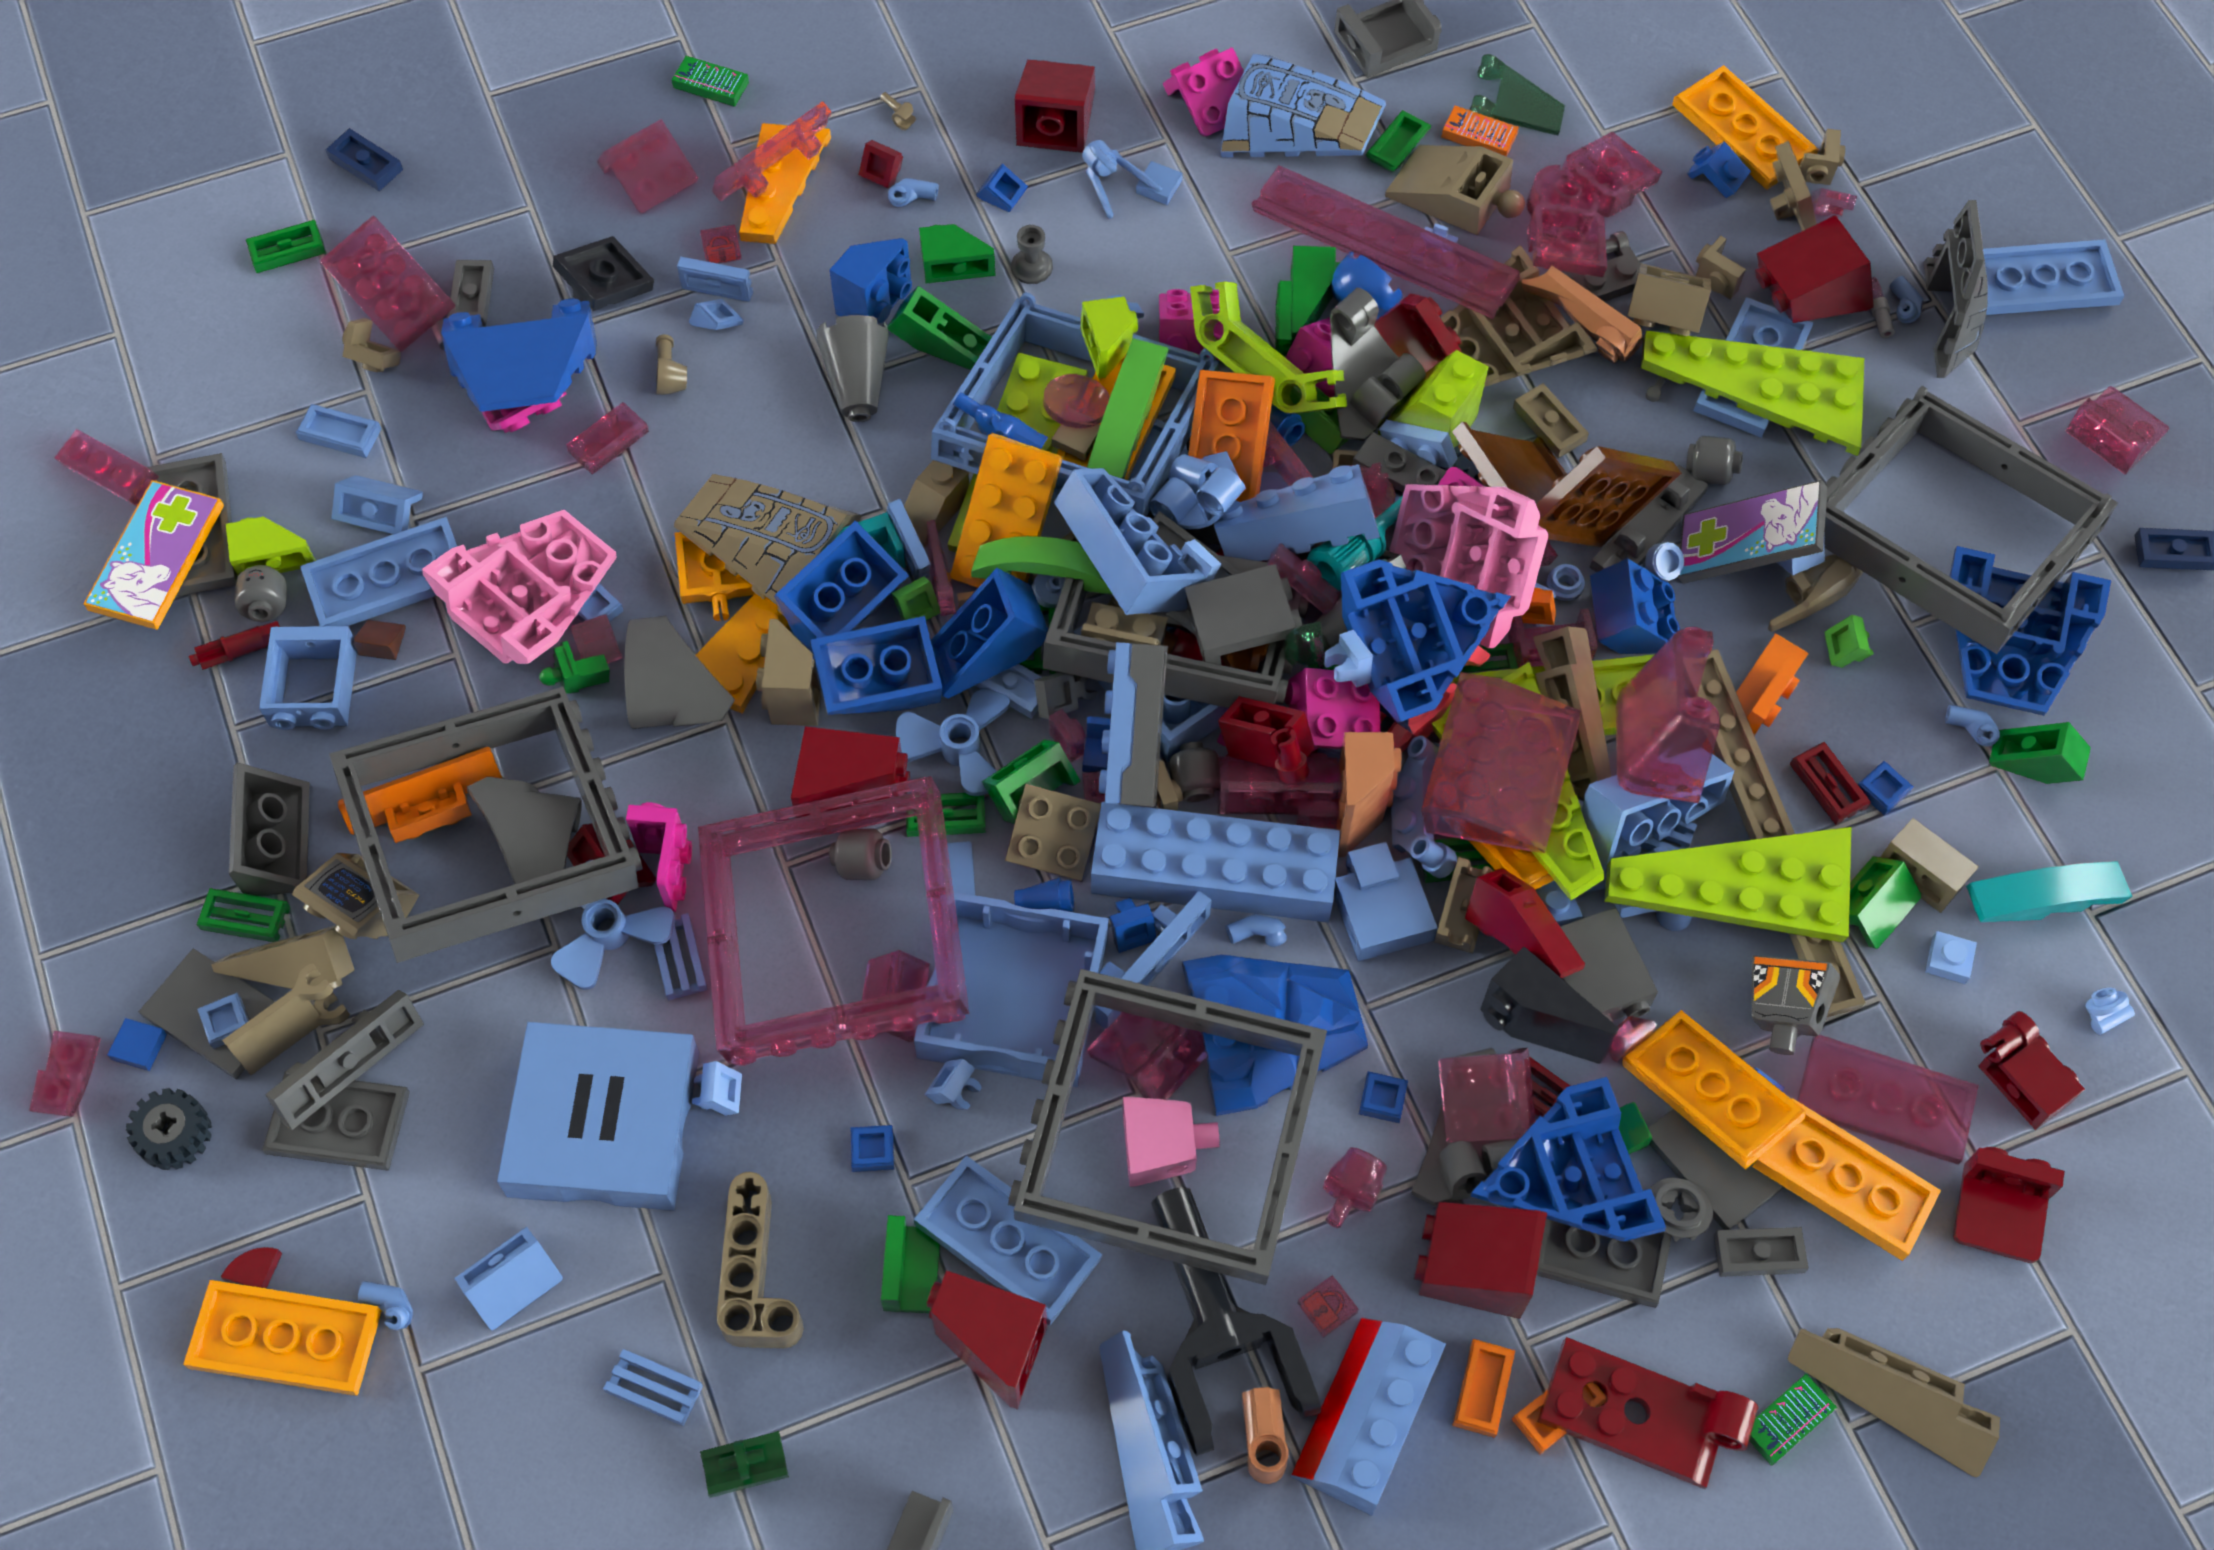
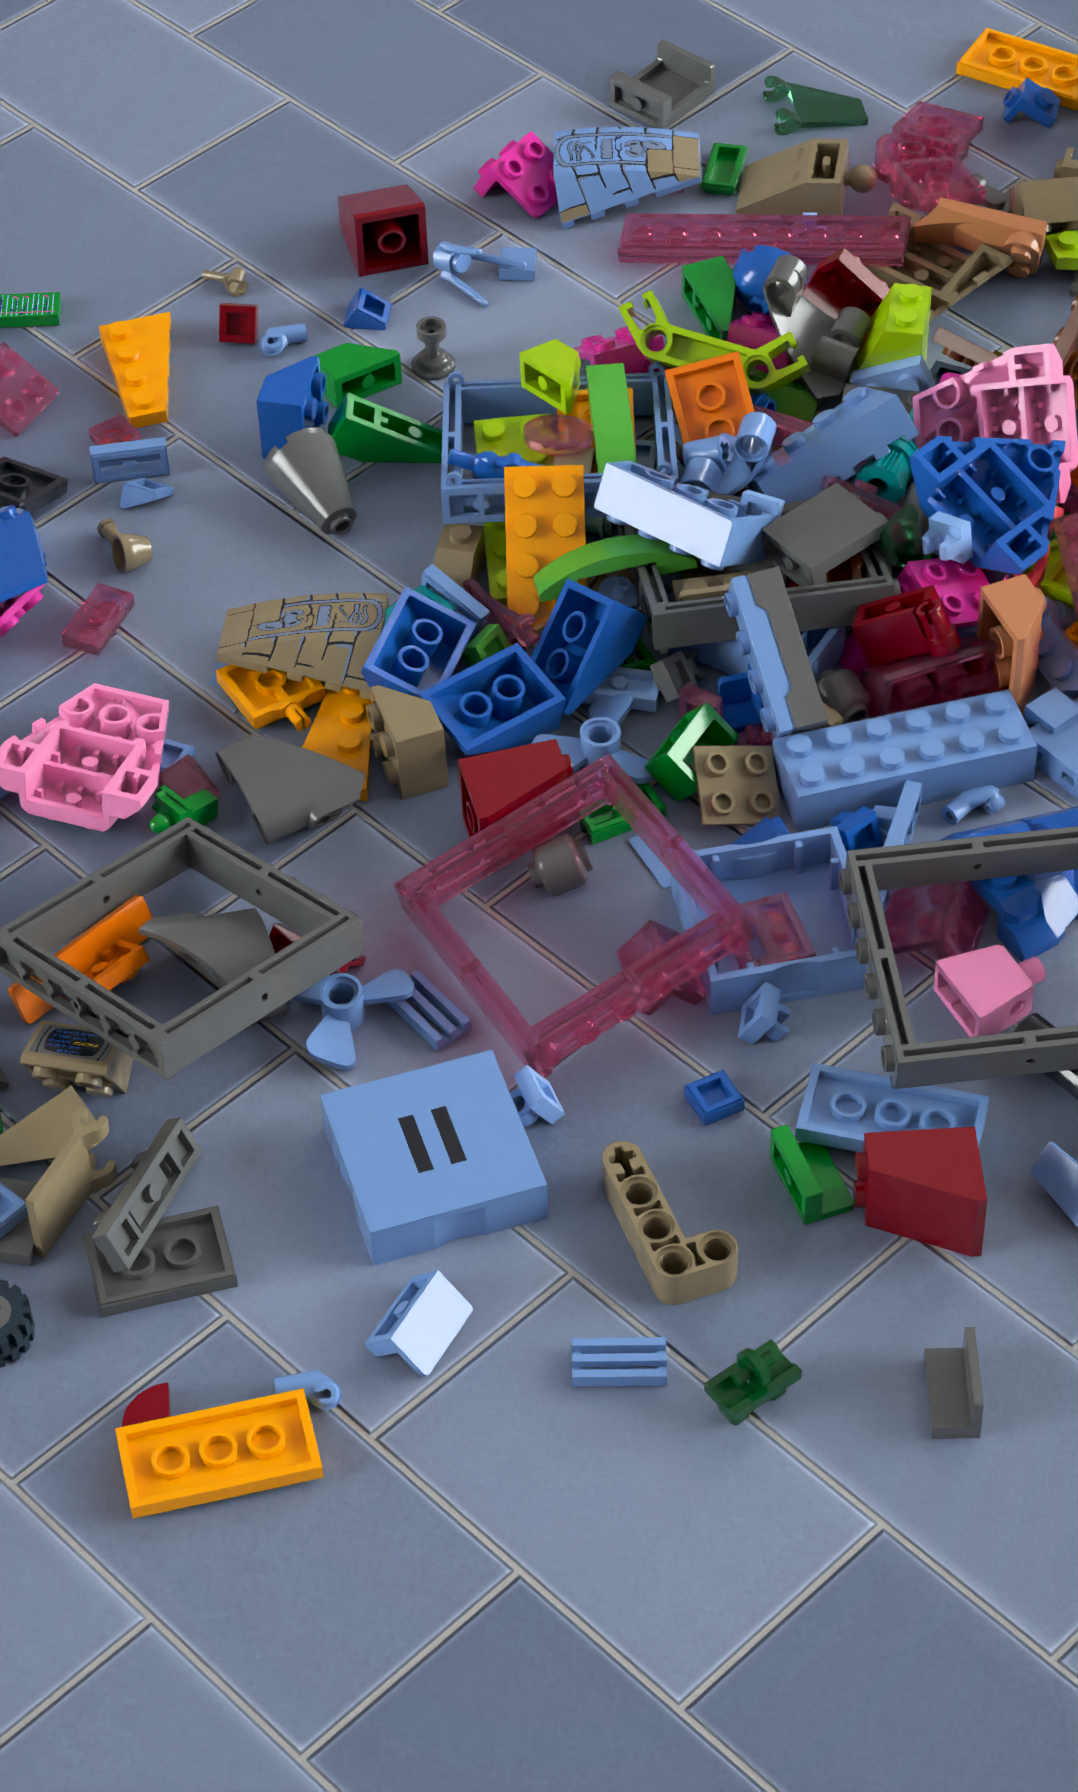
camera: 20 degrees left, 15 degrees down
(661, 832) = (369, 898): dark pink bracket -> none
(749, 169) = (118, 357): clear pink hinge -> none
(1008, 1007) = (776, 930): none -> clear pink plate
(1283, 317) = (700, 319): green tile -> none
(1479, 130) = (781, 137): orange tile -> none
(1550, 420) = (995, 331): dark tan plate -> none

